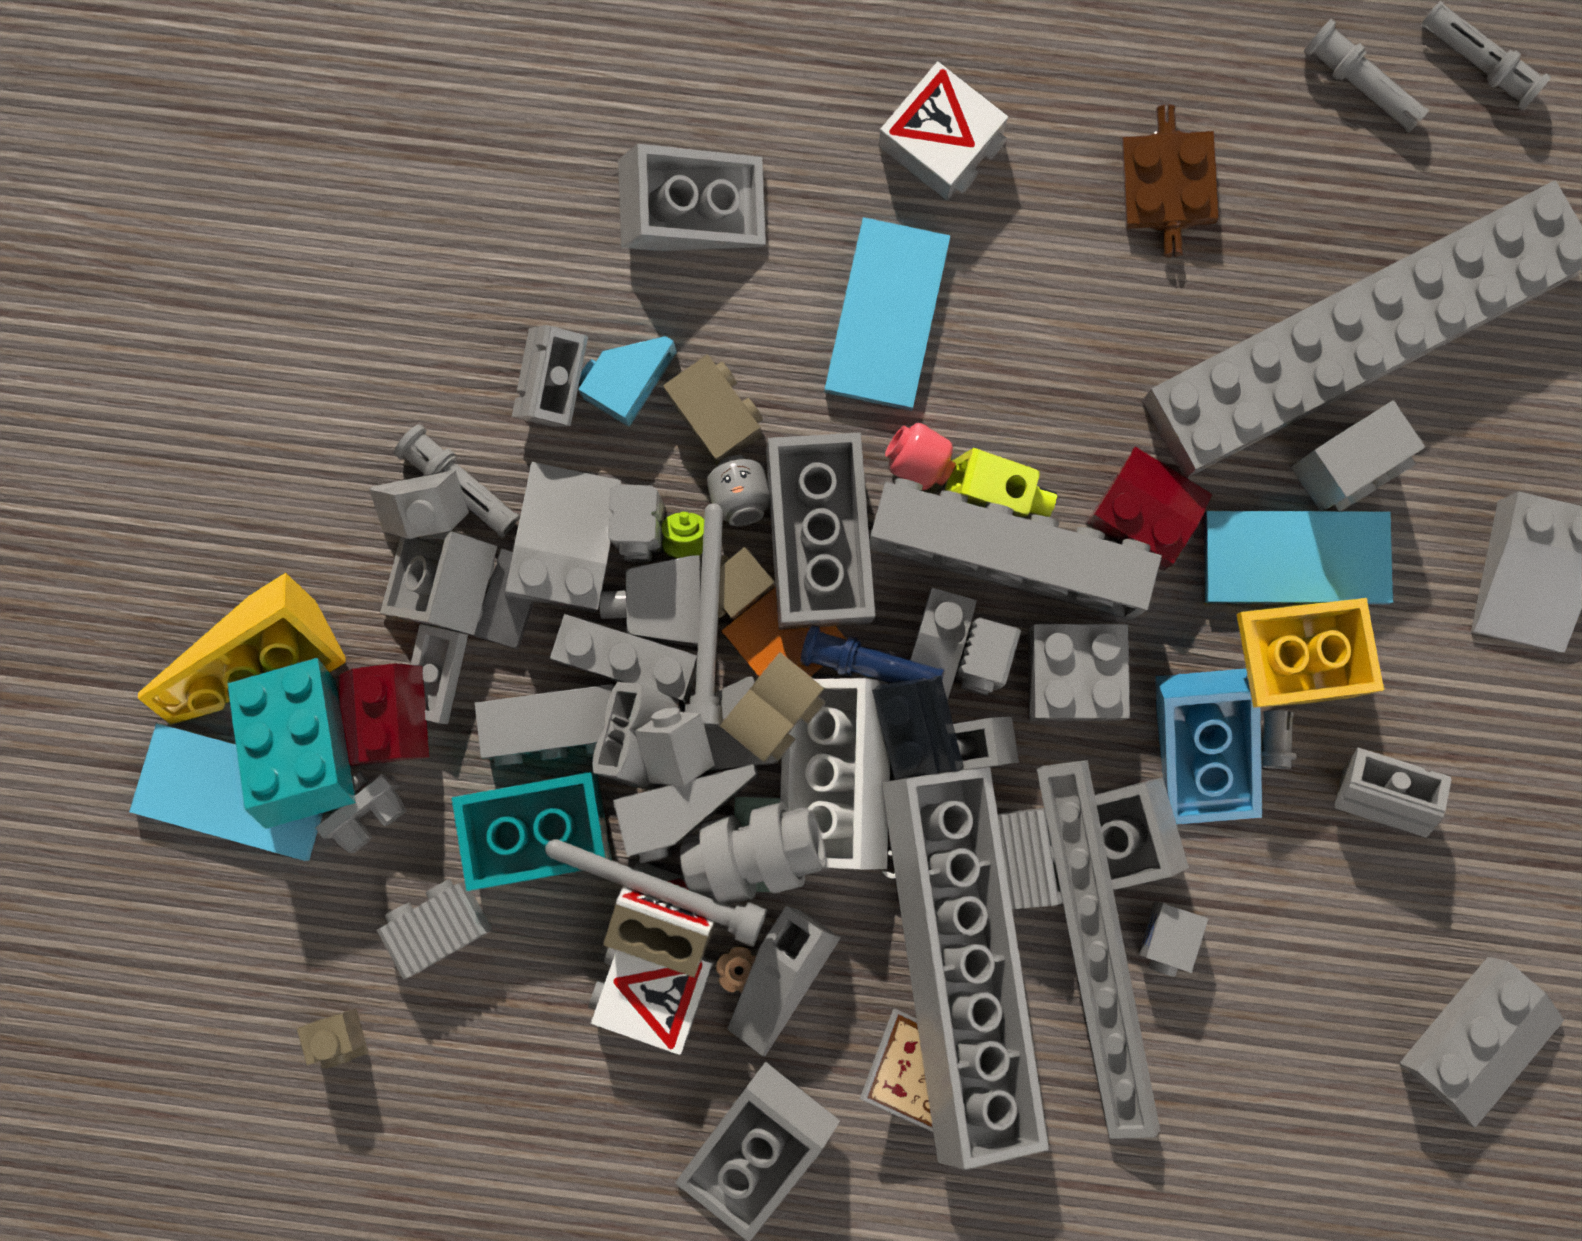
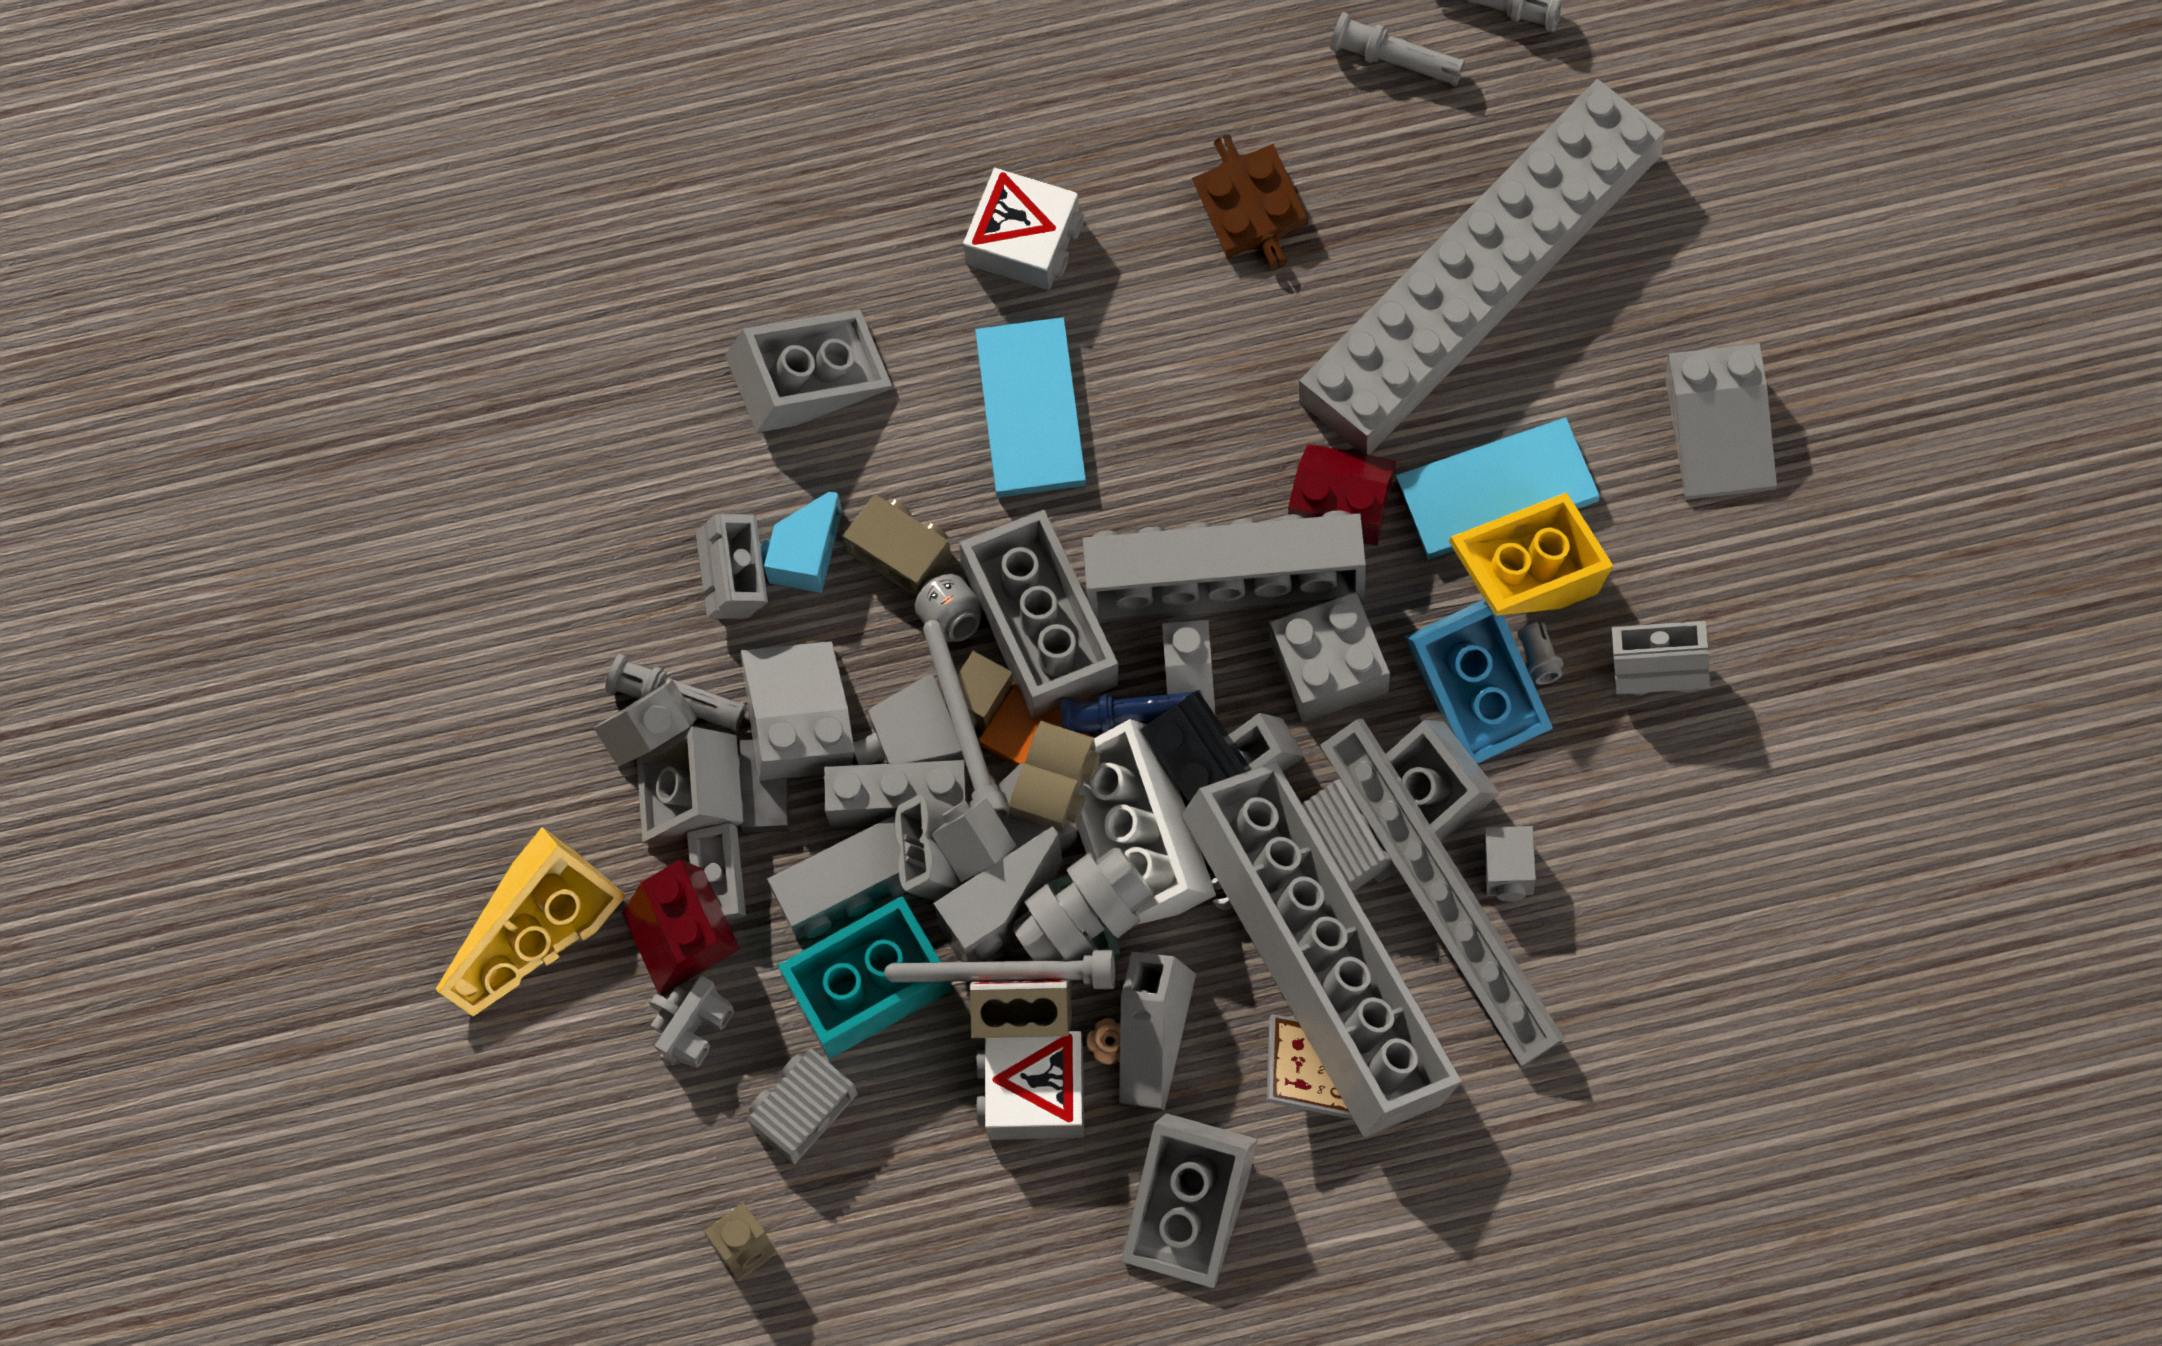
camera: 20 degrees left, 15 degrees down
(198, 787) = (557, 1055): medium azure tile -> none
(290, 743) = (604, 975): teal brick -> none
(636, 521) = (862, 662): light grey brick -> none
(683, 535) = (911, 663): lime wheel -> none
(920, 456) = (1108, 511): coral head -> none
(987, 476) = (1181, 504): neon yellow torso -> none
(987, 656) = (1236, 667): light grey brick -> none
(1366, 452) = (1512, 377): light grey brick -> none
(1483, 1039) = (1839, 851): light grey slope -> none

